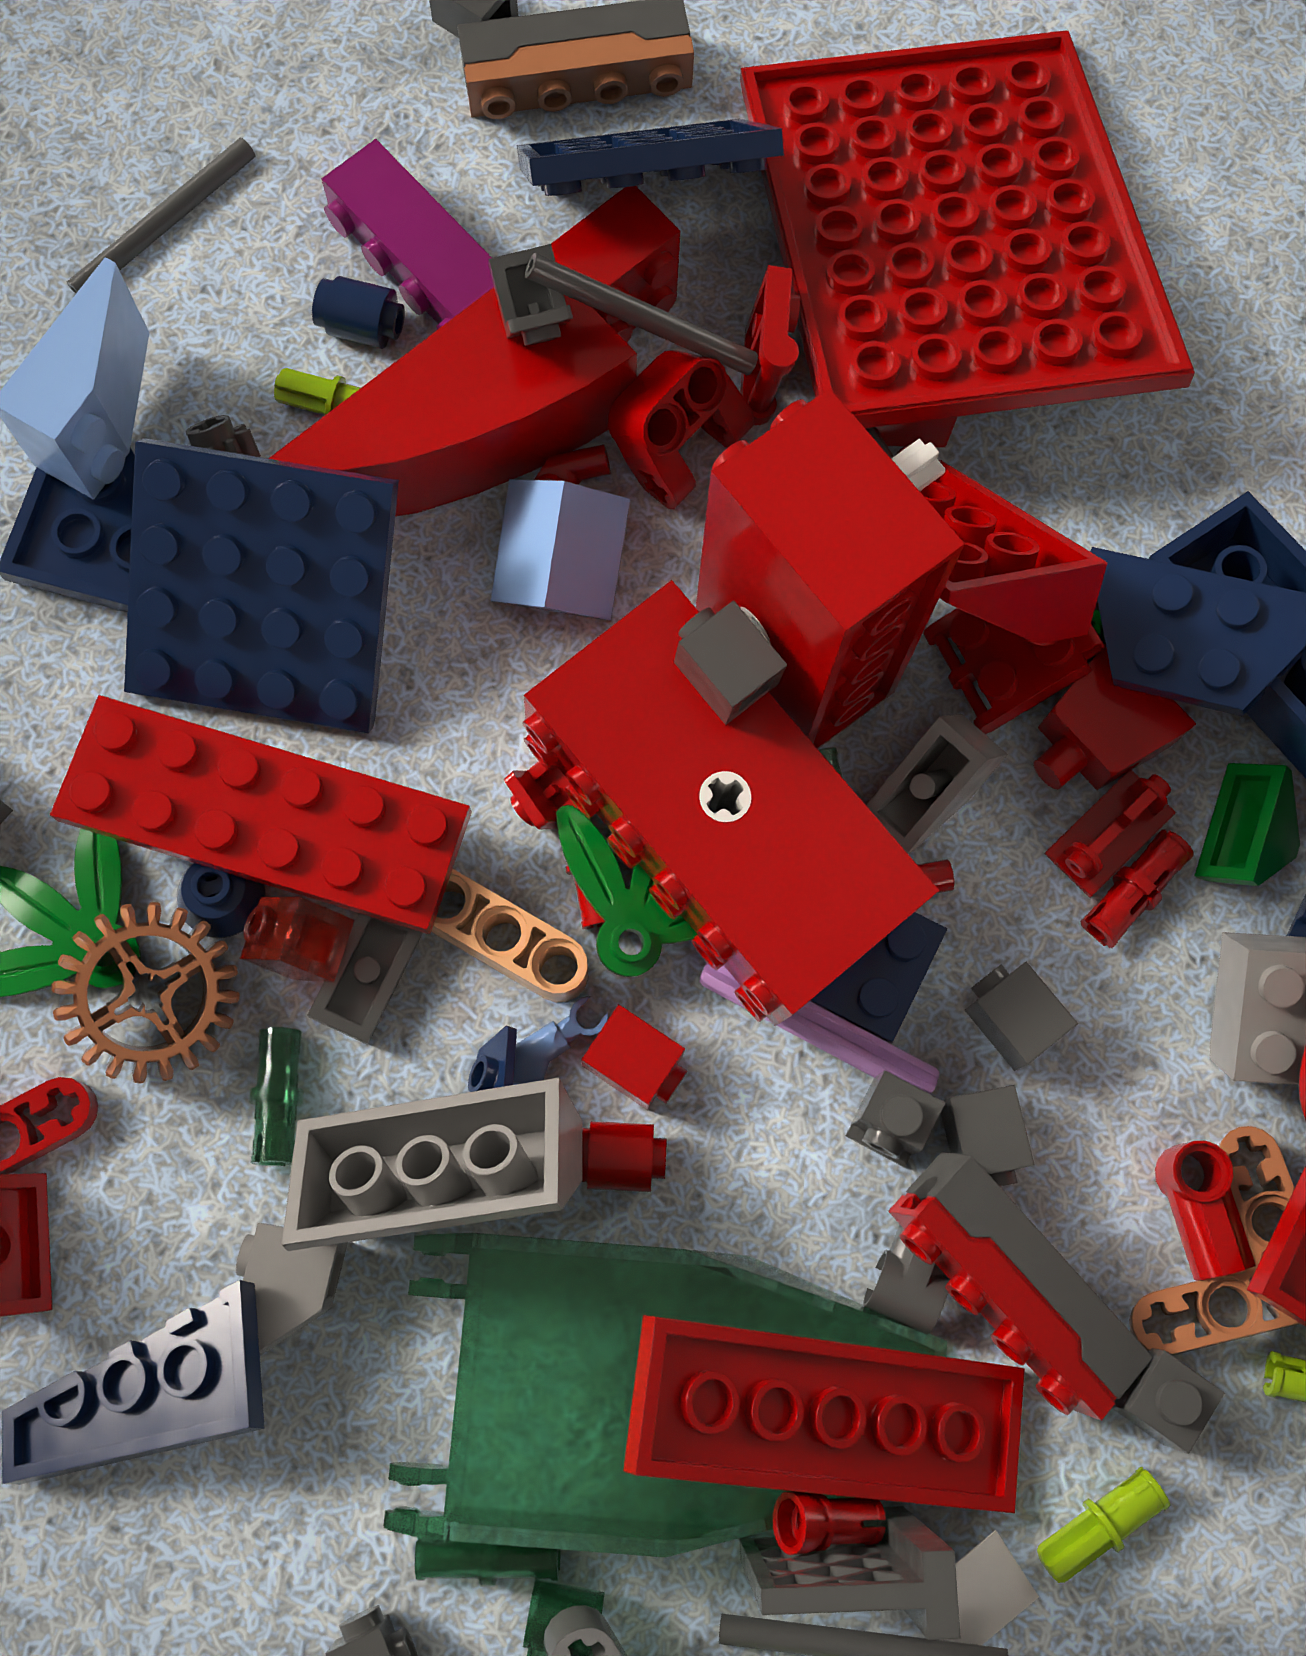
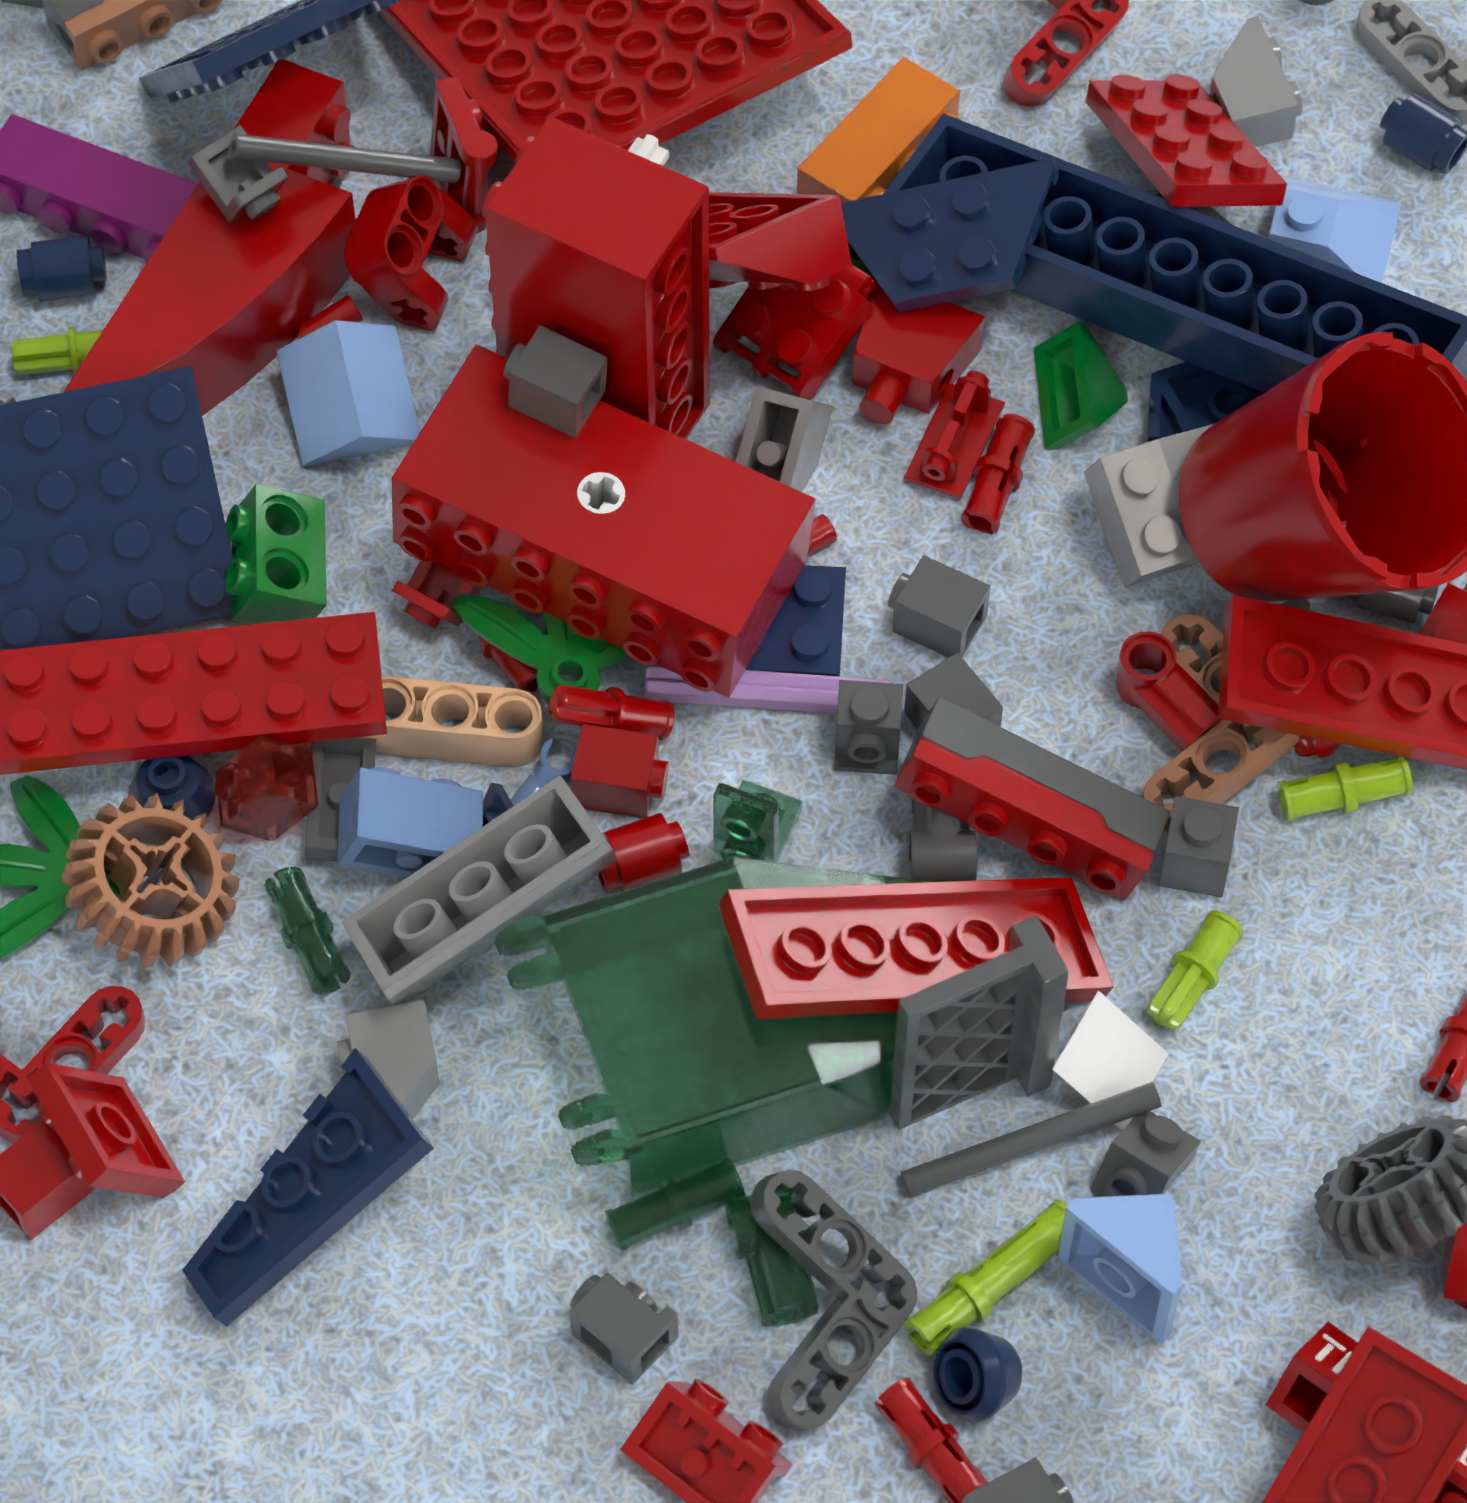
camera: 20 degrees left, 15 degrees down
(410, 1038) = (403, 821): none -> medium blue brick
(428, 707) = (276, 556): none -> green brick
(654, 996) = (611, 710): none -> red axle
(743, 1172) = (752, 821): none -> clear green bracket
(1170, 488) = (878, 135): none -> orange brick

